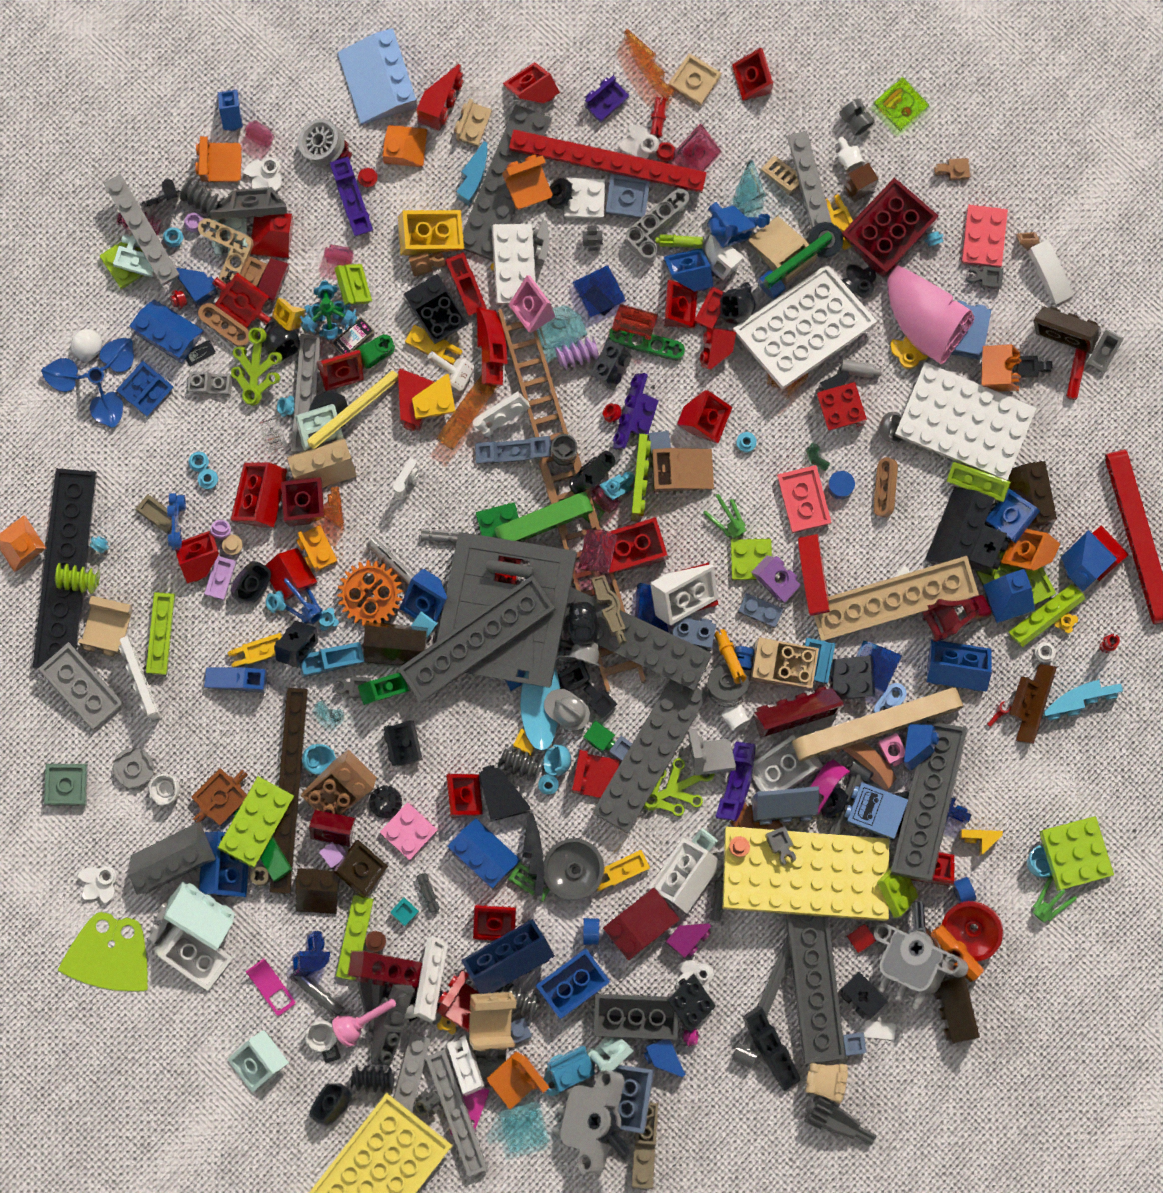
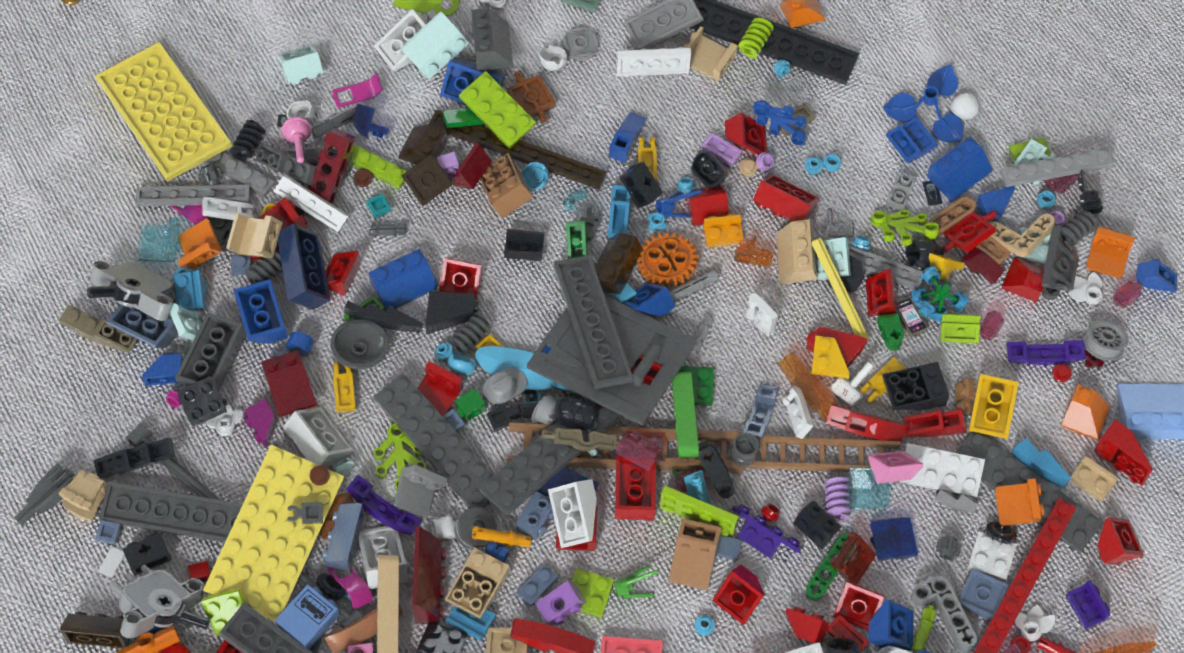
camera: 110 degrees right, 15 degrees down
(160, 633) = (688, 92): lime plate -> none
(178, 299) = (985, 186): red plate -> none
(253, 876) = (455, 103): dark tan bush -> none
(302, 501) = (768, 224): dark red slope -> none
(330, 1103) = (241, 103): black piece -> none
(386, 811) = (477, 227): black gear -> none
(408, 831) = (446, 231): bright pink plate -> none

